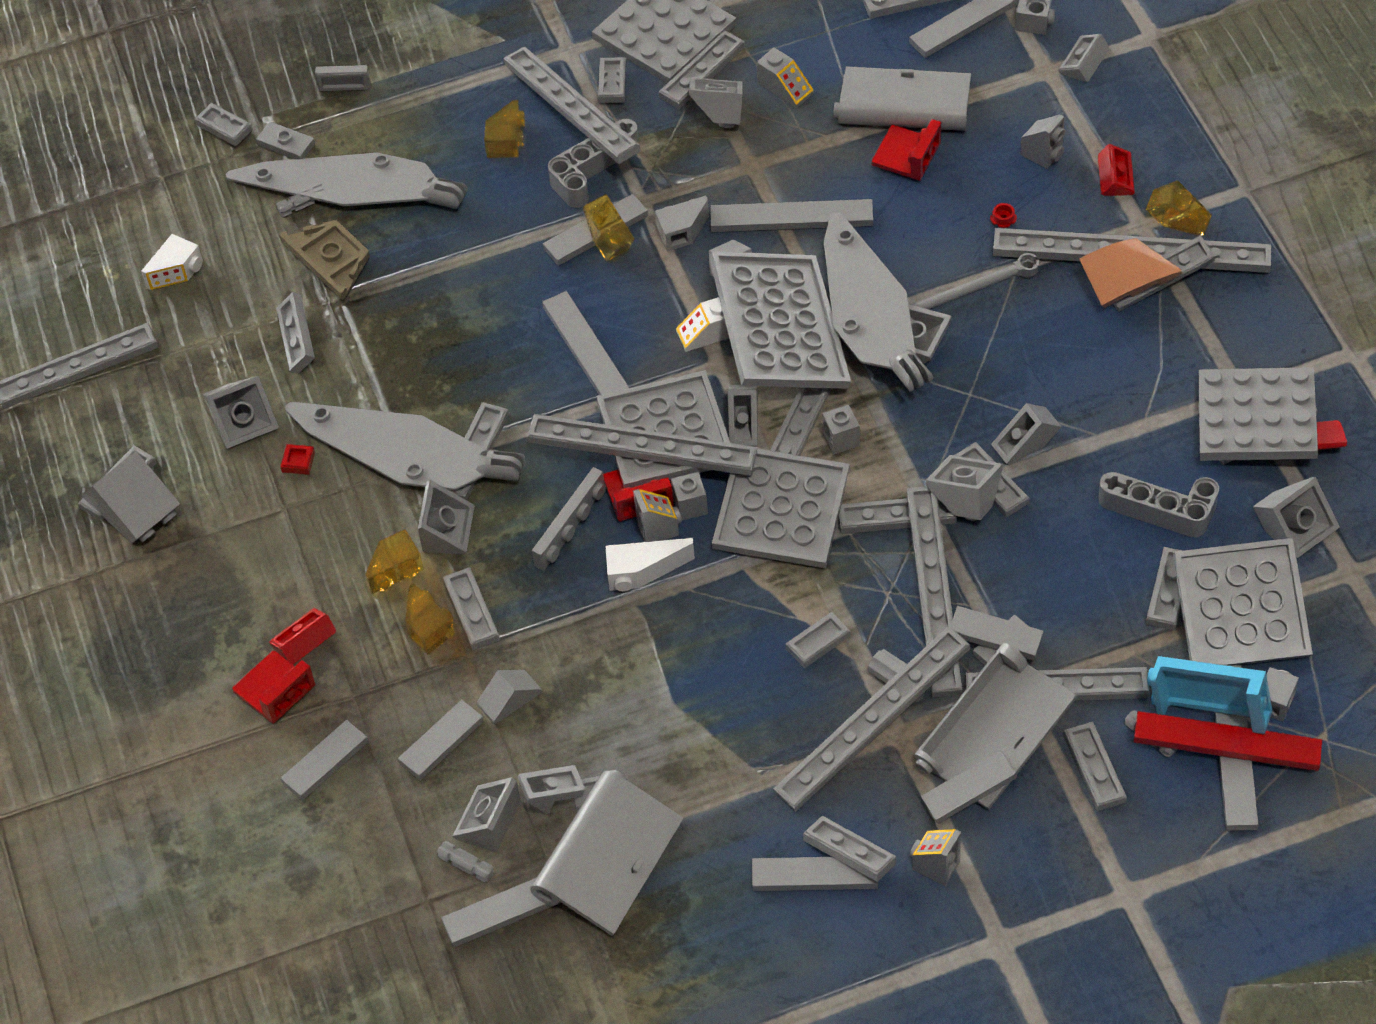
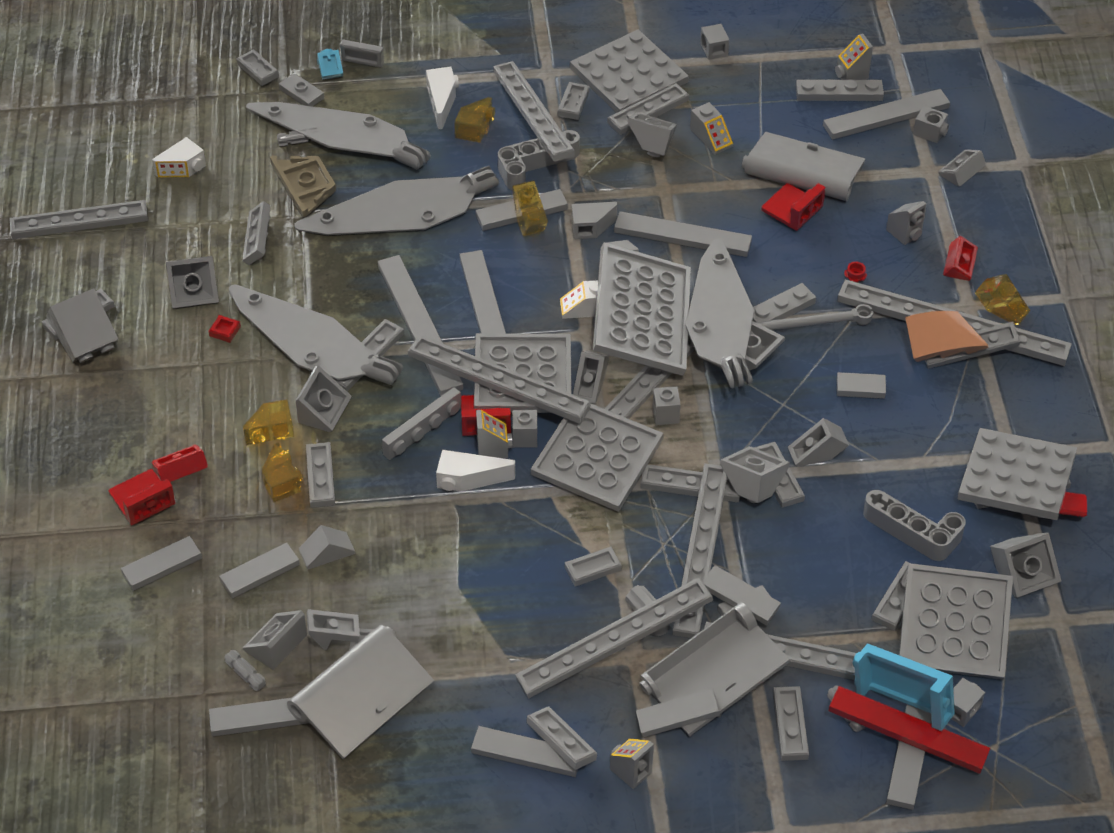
camera: 10 degrees right, 5 degrees down
(308, 100) = (329, 64): none -> medium azure bracket
(452, 101) = (442, 92): none -> white slope
(454, 258) = (402, 205): none -> light grey wing
(516, 390) = (415, 316): none -> light grey tile
(935, 274) = (784, 304): none -> light grey plate
(1051, 350) = (861, 385): none -> light grey tile

